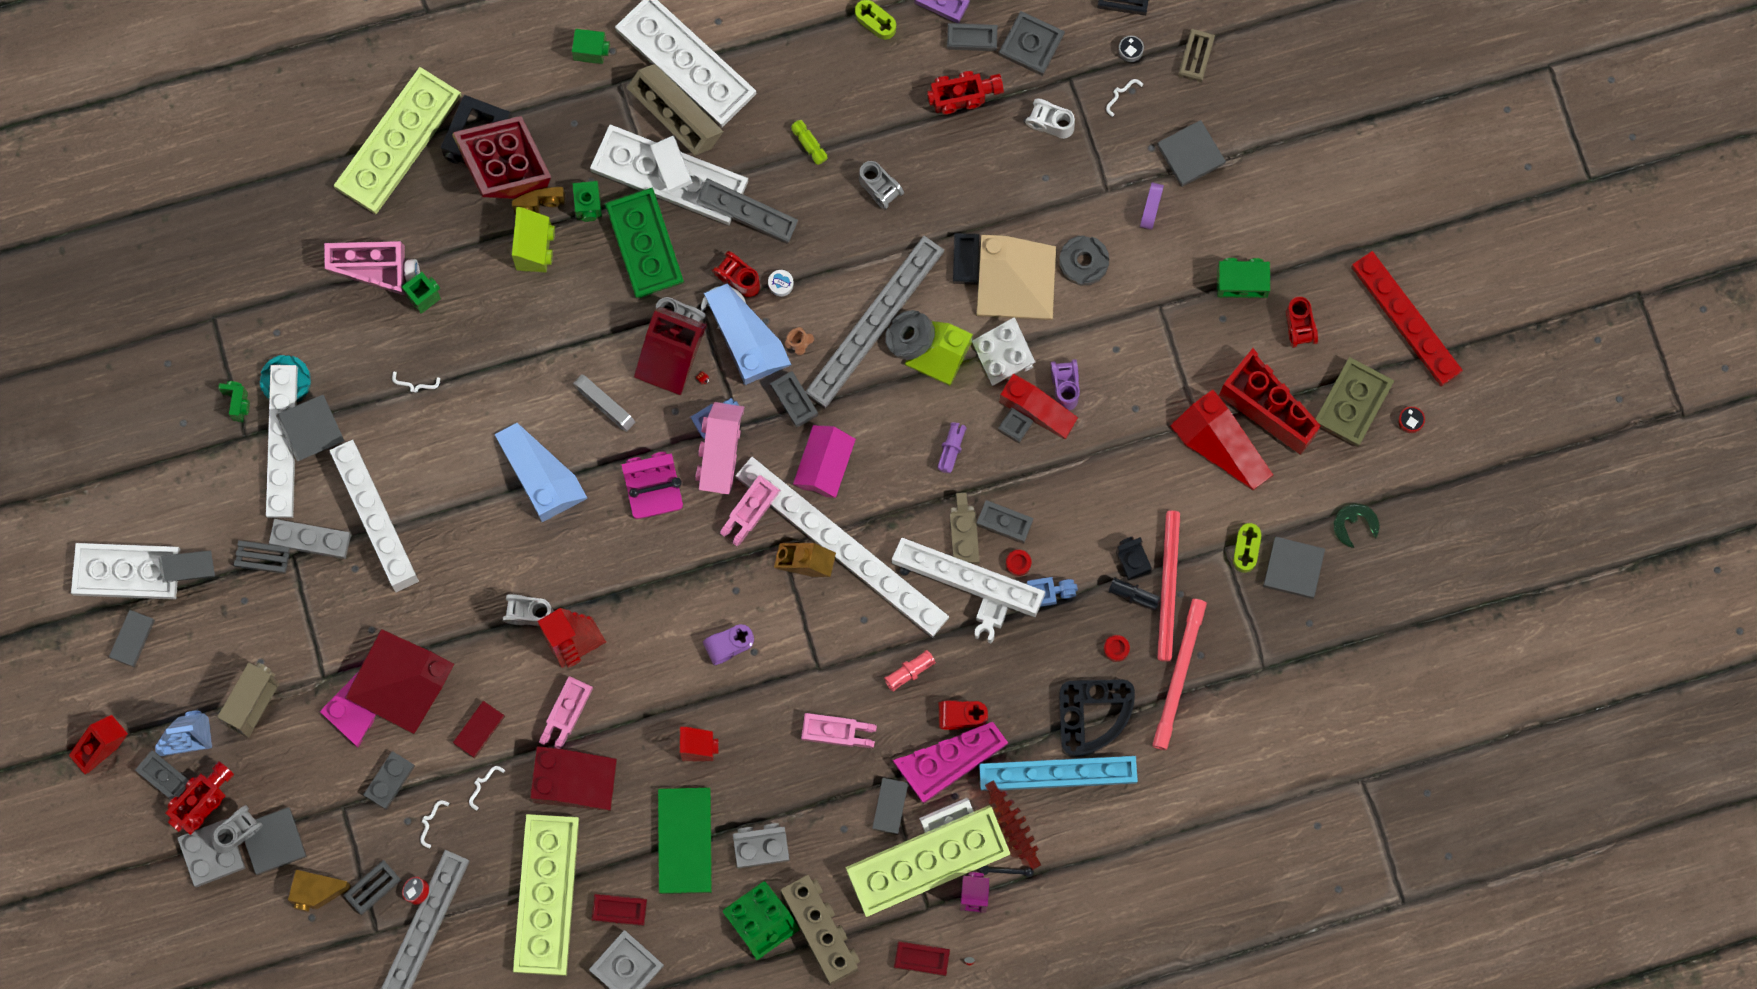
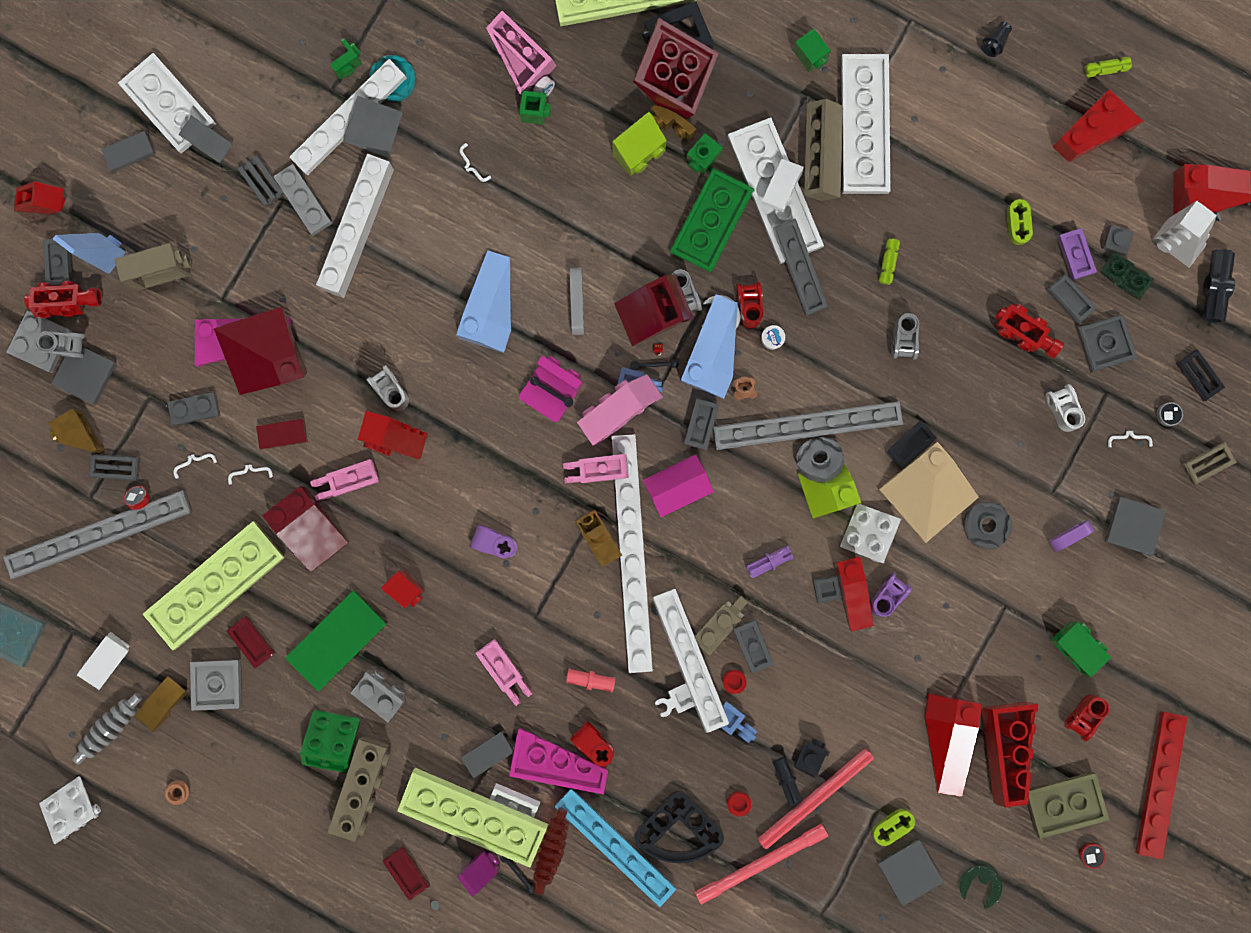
camera: 45 degrees right, 10 degrees up
(726, 375) = (635, 365): none -> black hinge

